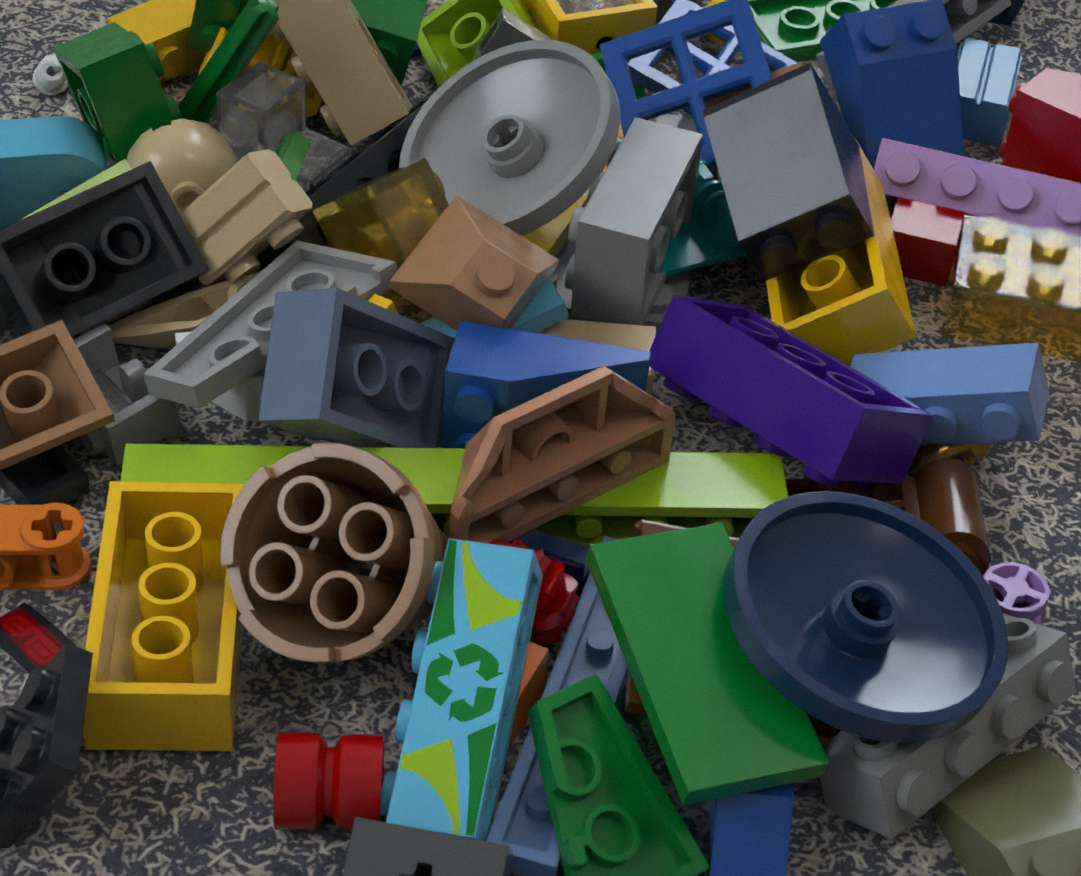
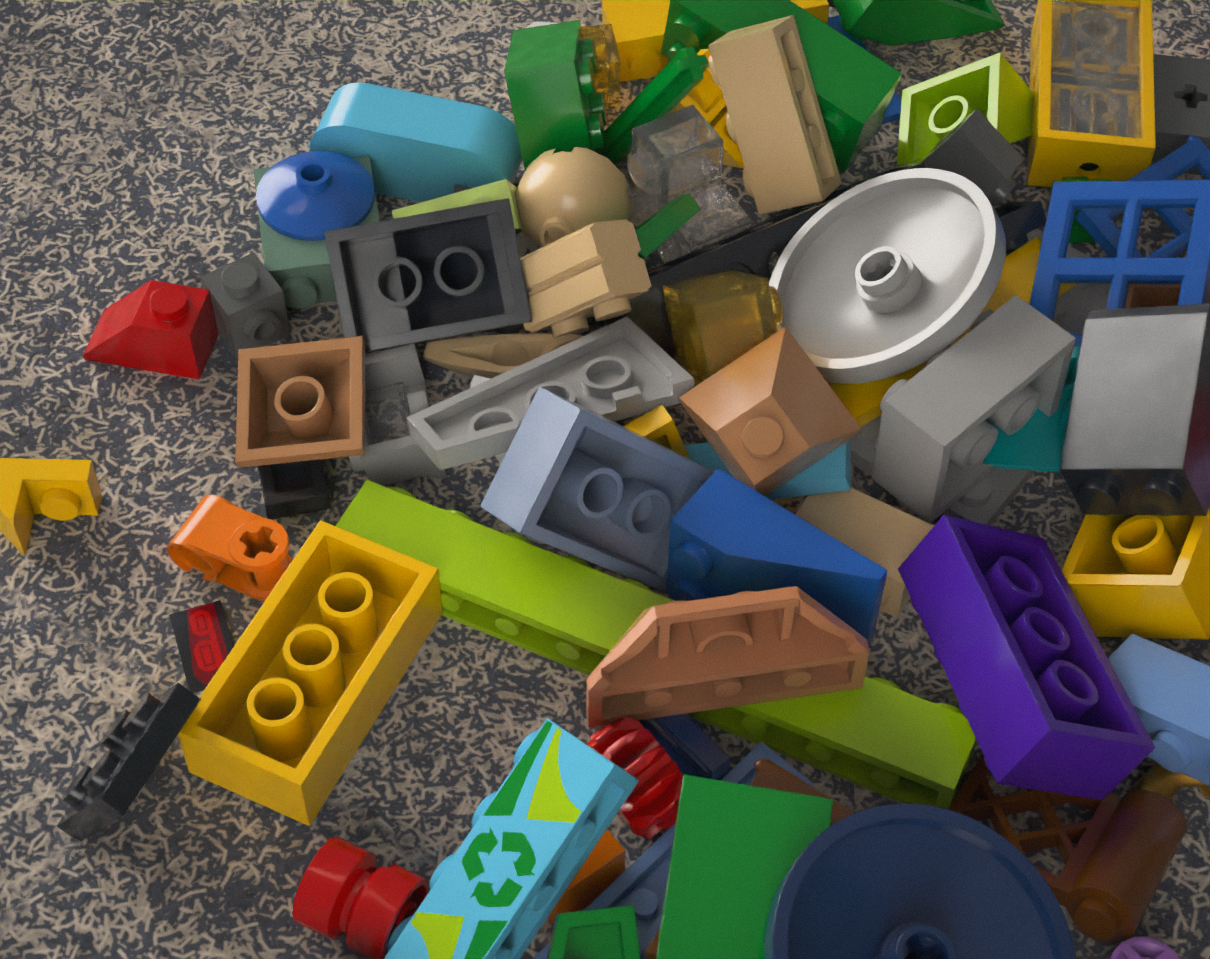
camera: 30 degrees right, 10 degrees up
(302, 549) = (458, 685): medium nougat cone -> none

